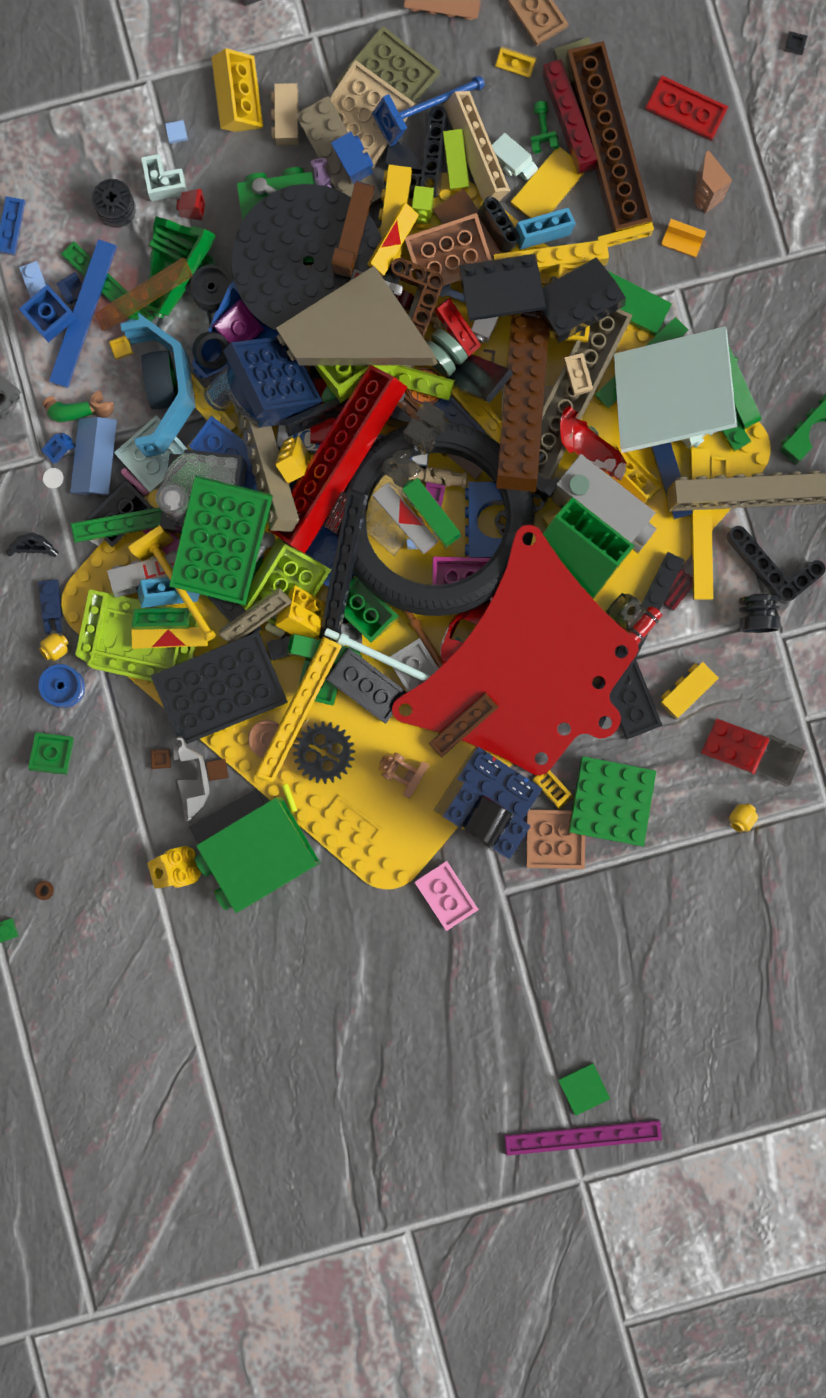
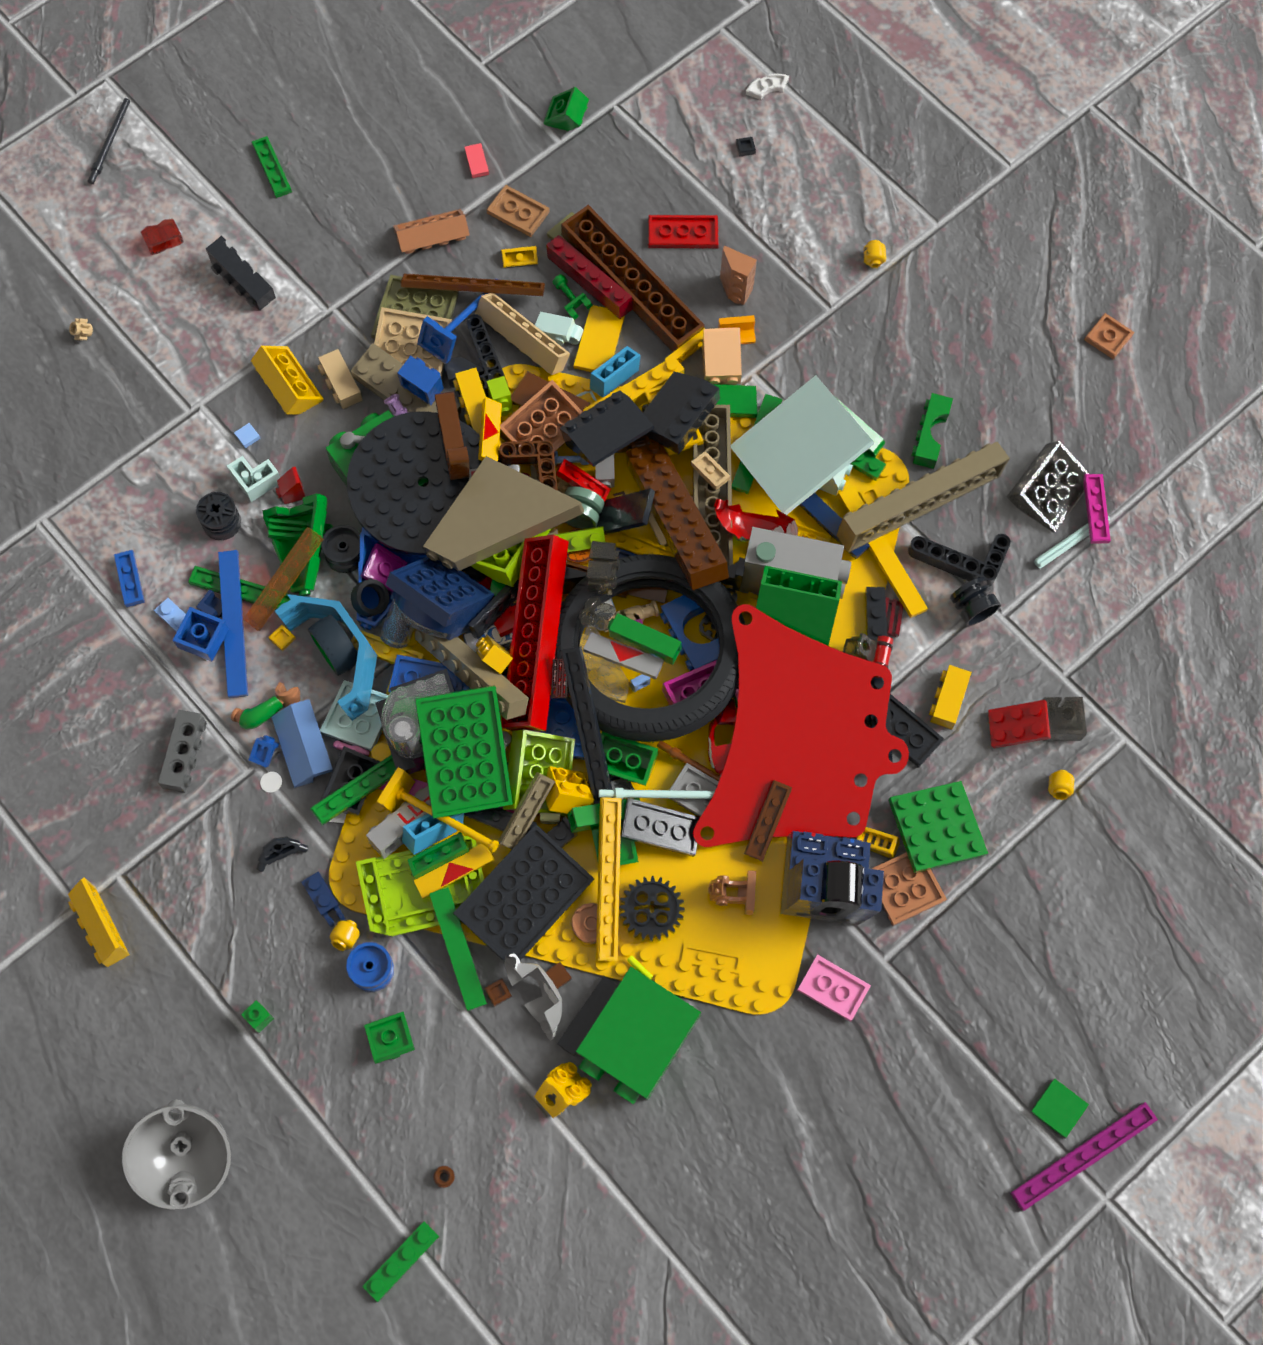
camera: 30 degrees left, 15 degrees down
(142, 706) = (458, 949): none -> green tile
(454, 74) = (473, 284): none -> reddish brown tile
(456, 159) = (509, 350): lime tile -> none
(498, 224) = (574, 384): black beam -> none
(653, 260) = (722, 356): none -> light nougat slope

